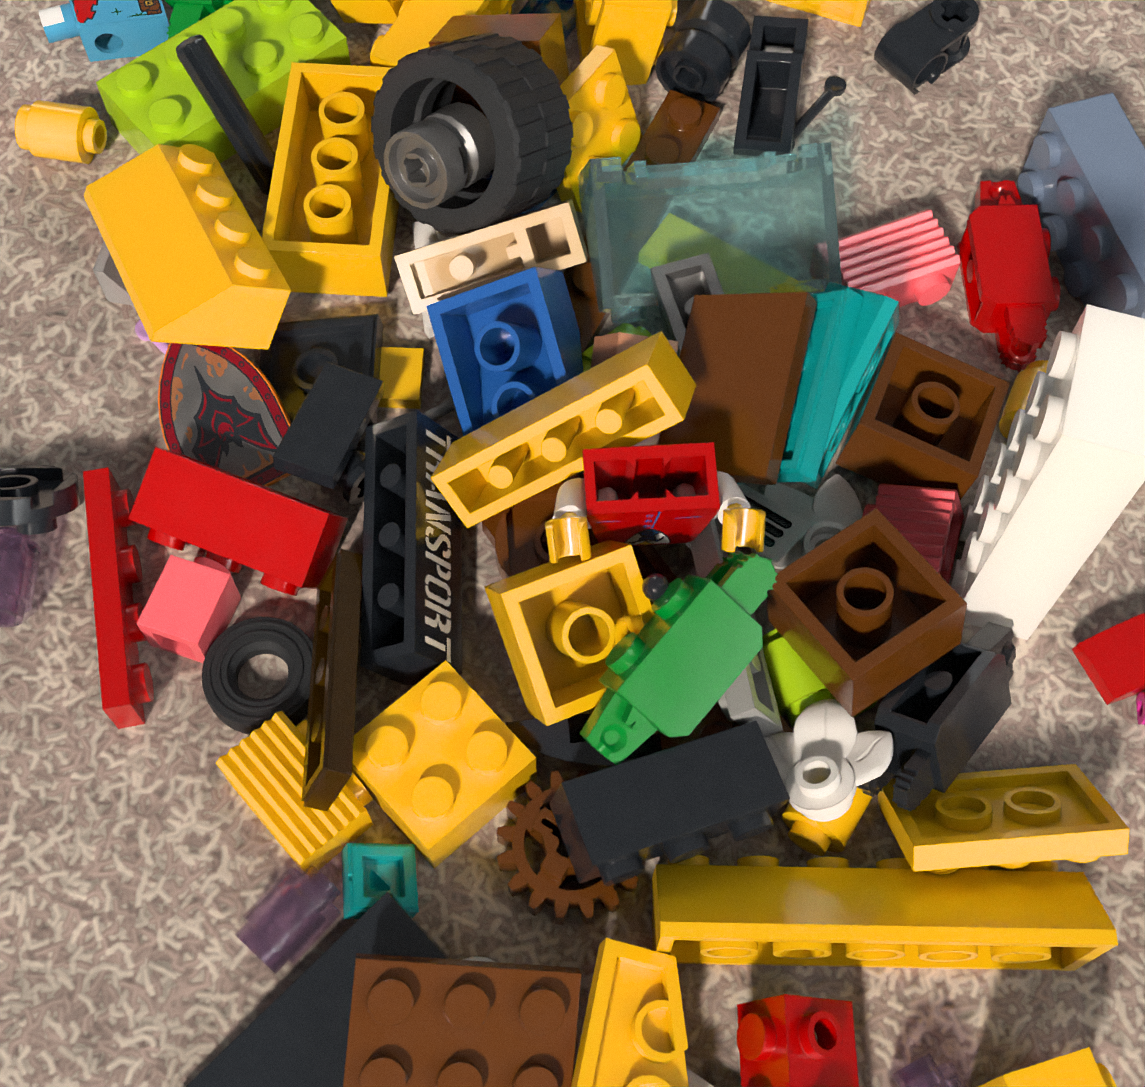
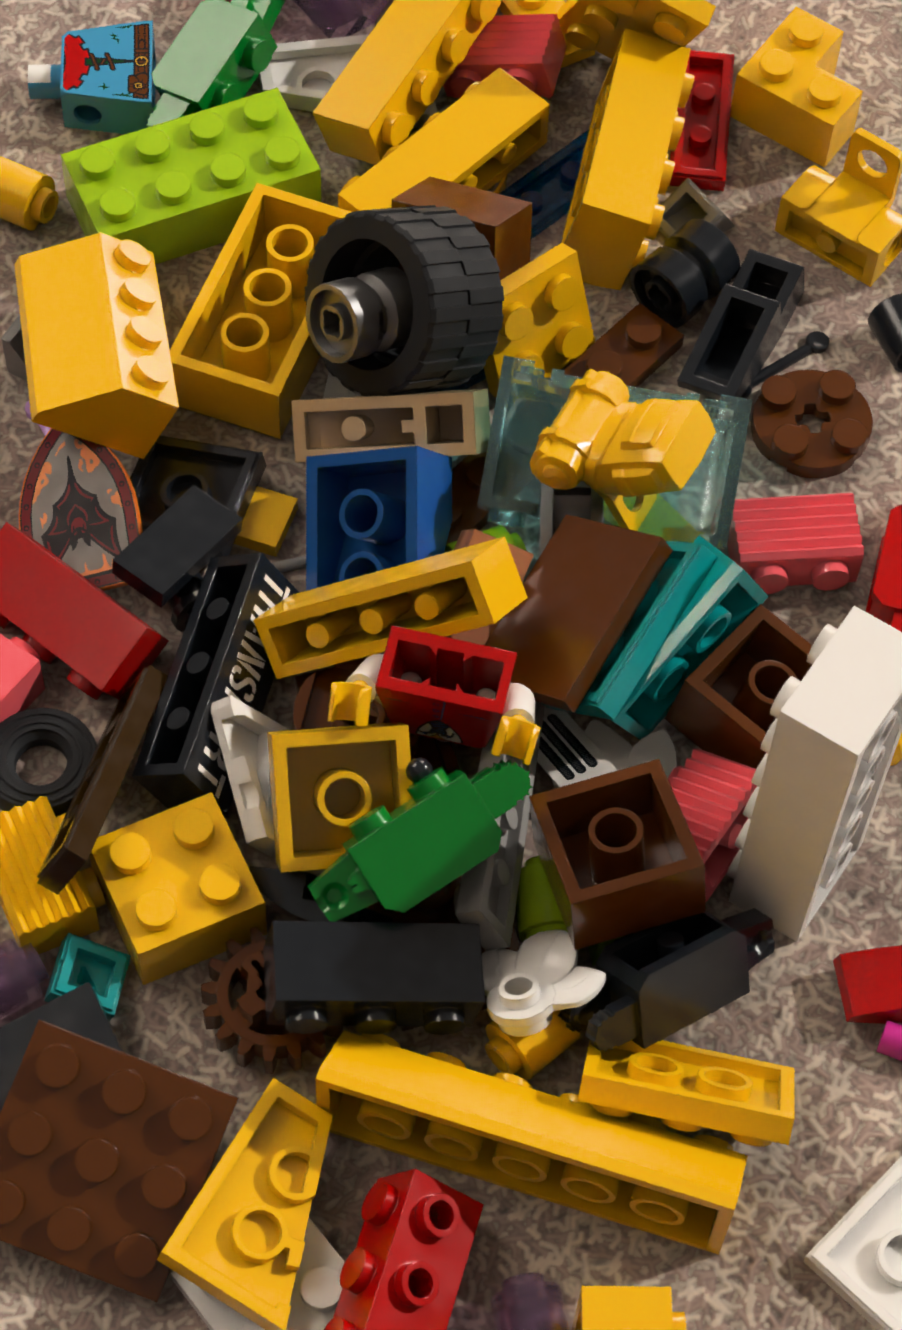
camera: 15 degrees right, 5 degrees down
(228, 108) = (179, 213): black axle -> none
(465, 608) = (246, 758): none -> white wing
(725, 215) = (621, 445): none -> yellow piece
(873, 133) = (818, 393): none -> reddish brown plate

